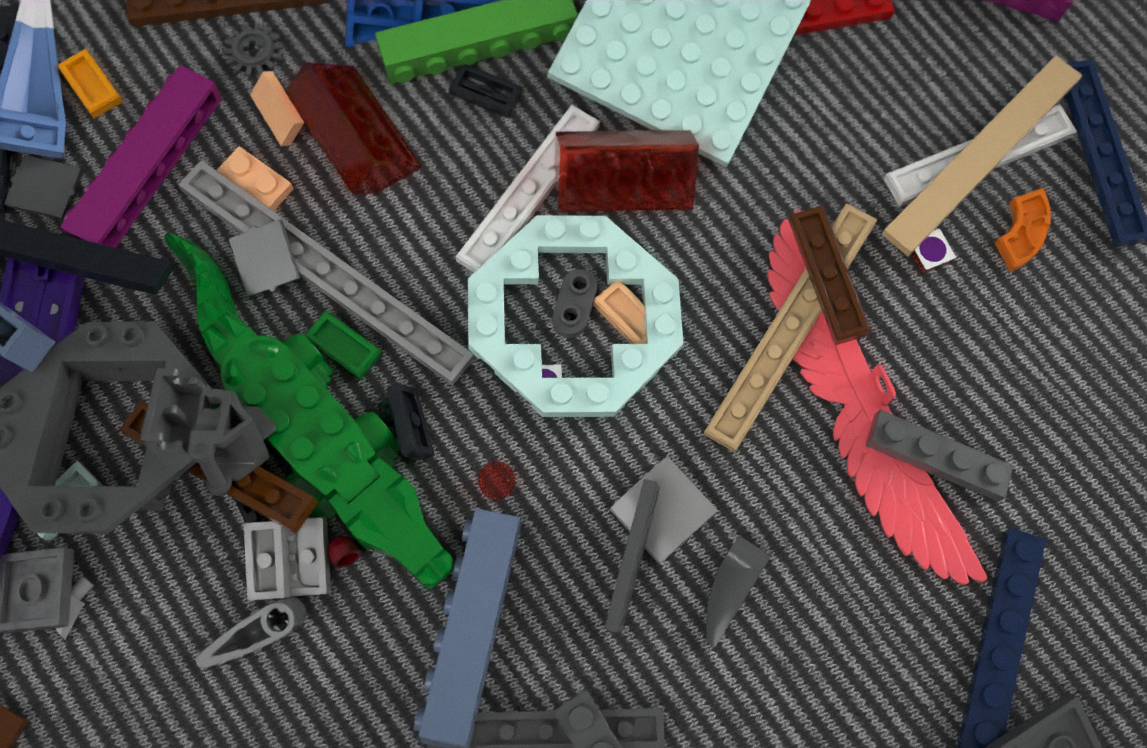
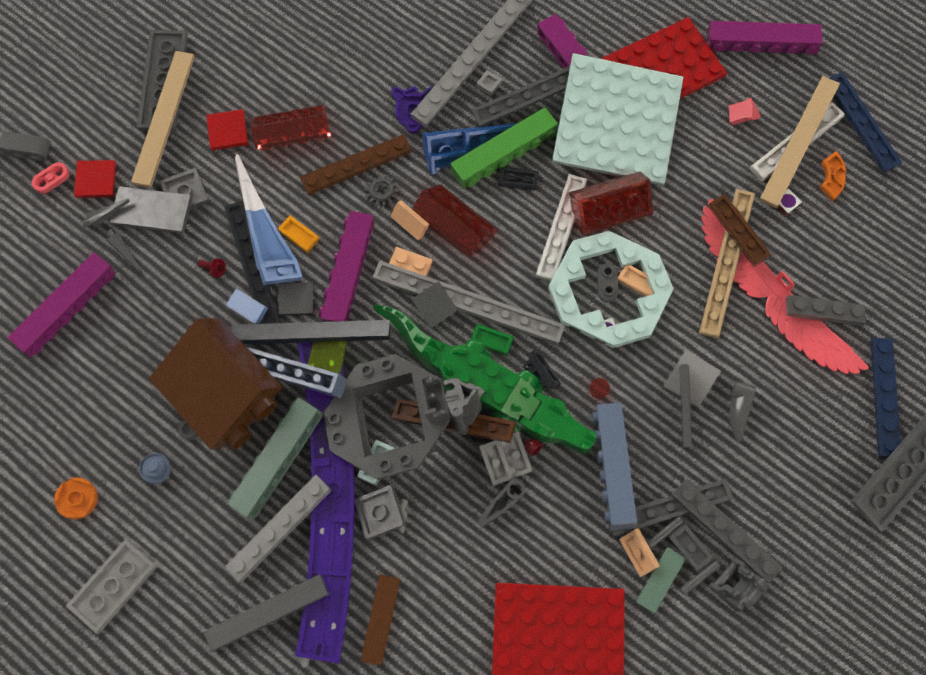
camera: 10 degrees left, 0 degrees up
(46, 296) = (328, 355): none -> clear neon green piece
(902, 81) = (743, 112): none -> coral tile

